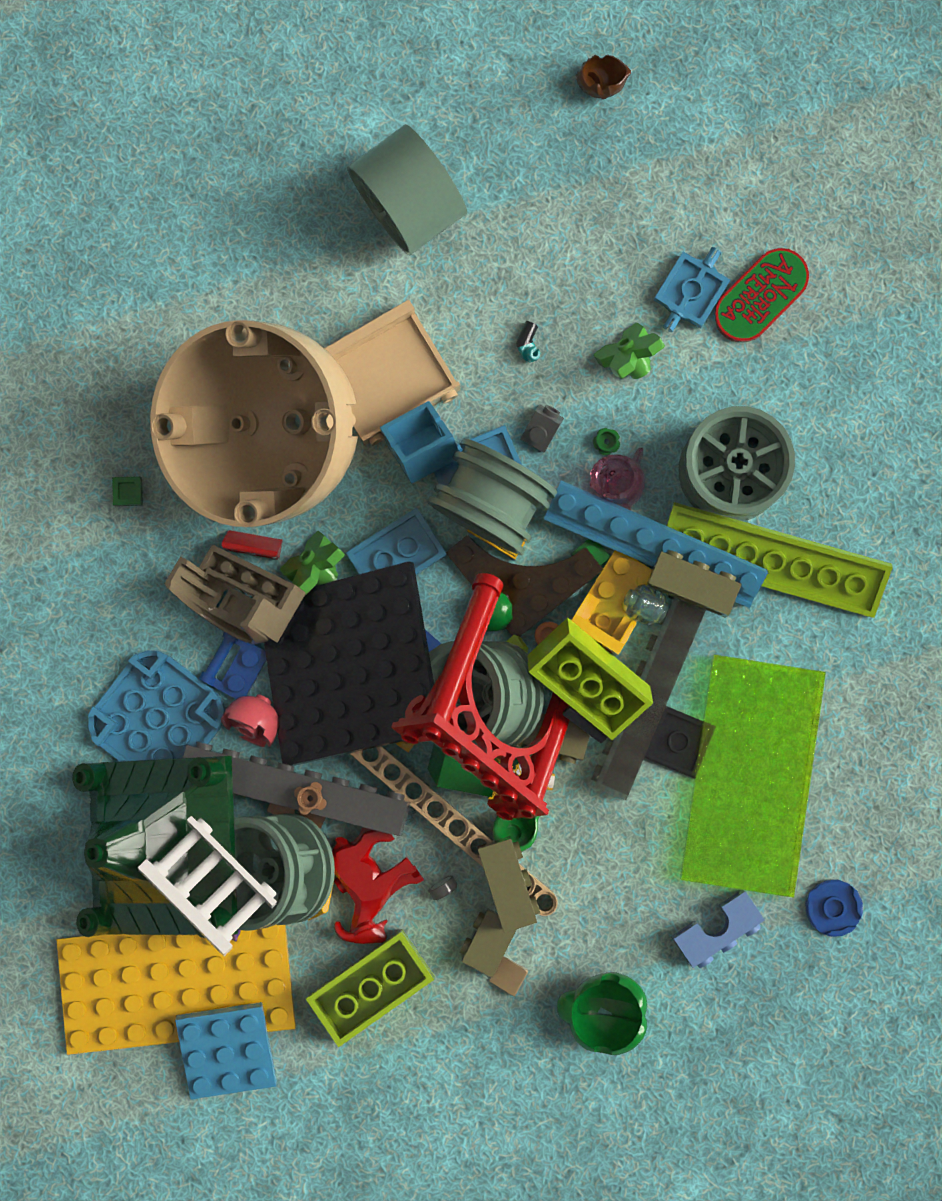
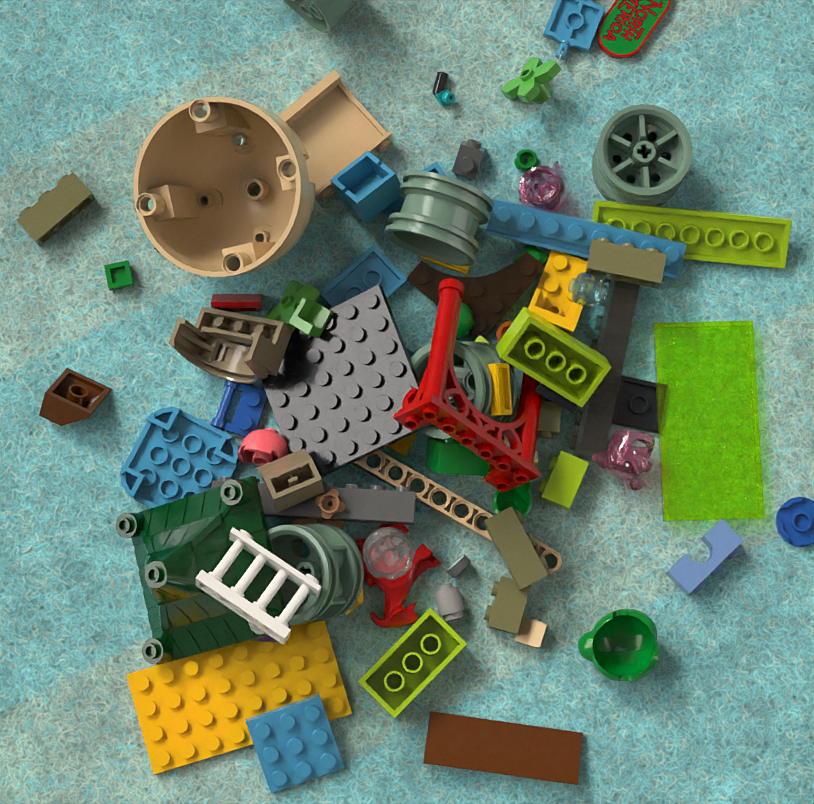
camera: 15 degrees left, 5 degrees down
(51, 621) = (72, 398): none -> reddish brown slope
(69, 403) = (55, 208): none -> olive brick
(271, 763) = (291, 479): none -> dark tan slope
(327, 583) = (310, 317): none -> bright green panel
(364, 864) = (388, 553): none -> clear cylinder
(425, 926) = (449, 602): none -> light grey brick
(453, 1098) = (503, 748): none -> reddish brown arch
(523, 708) = (501, 394): none -> yellow tile
(577, 813) = (563, 480): none -> lime brick
(652, 802) = (627, 460): none -> clear pink piece

